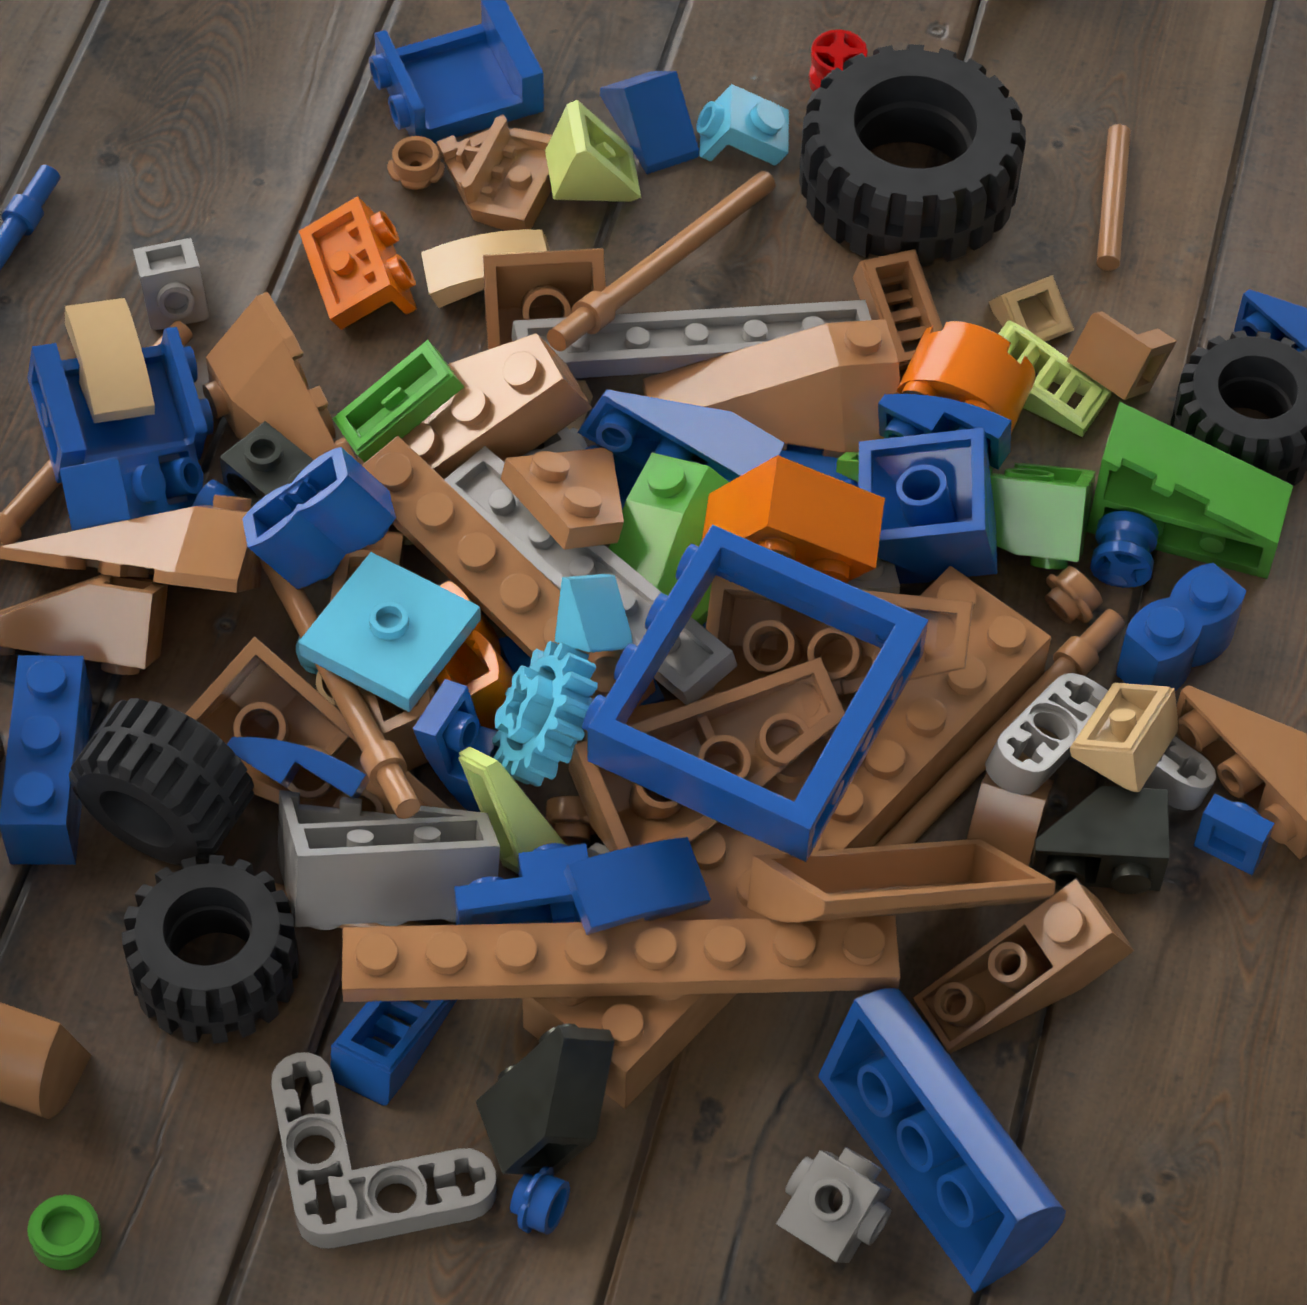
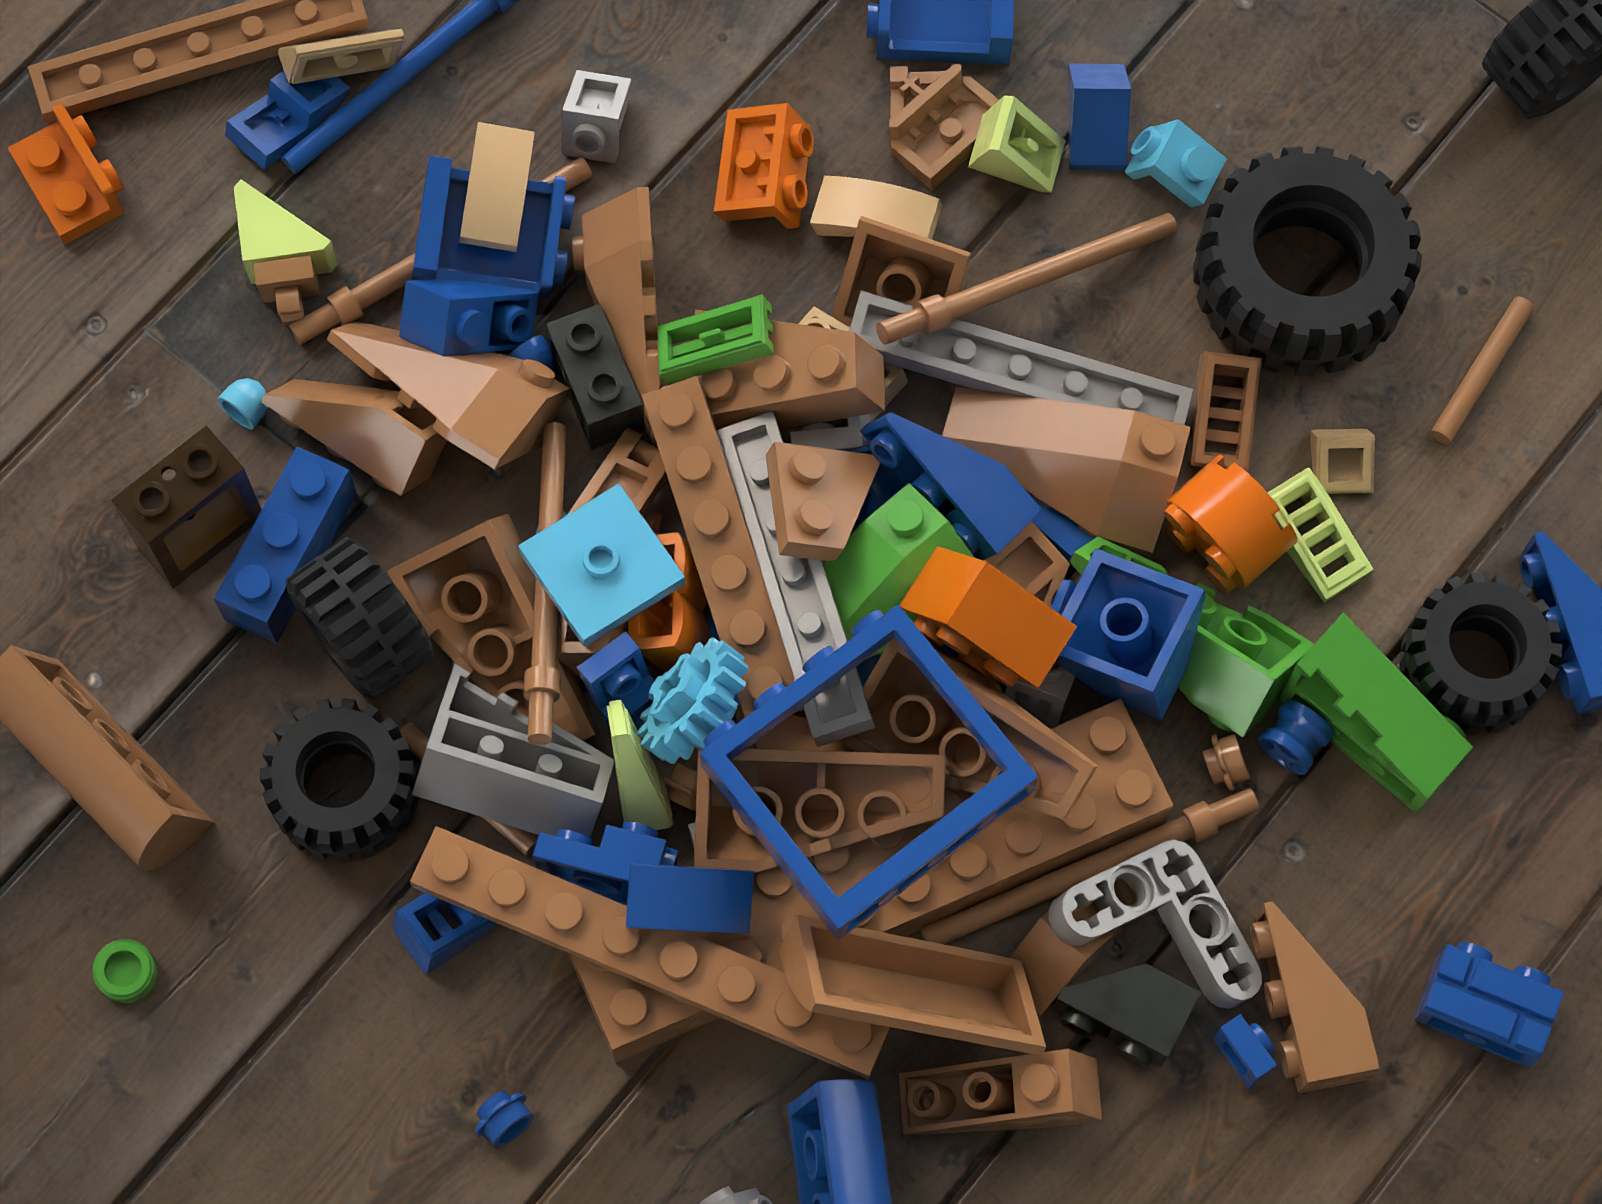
camera: 25 degrees right, 15 degrees up
(283, 760) = (463, 637): blue slope -> none
(319, 518) = (591, 431): blue brick -> none
(356, 1190) = (368, 1041): light grey beam -> none
(416, 163) = (864, 66): medium nougat plate -> none
(549, 1100) = (541, 1043): pearl dark grey slope -> none
(592, 614) = (768, 635): medium azure slope -> none
(831, 51) = (1296, 116): red wheel -> none
(926, 414) = (1173, 551): blue slope -> none
(1119, 357) = (1387, 551): medium nougat panel -> none
(1128, 733) = (1193, 925): tan slope -> none
(1182, 629) = (1314, 840): blue brick -> none

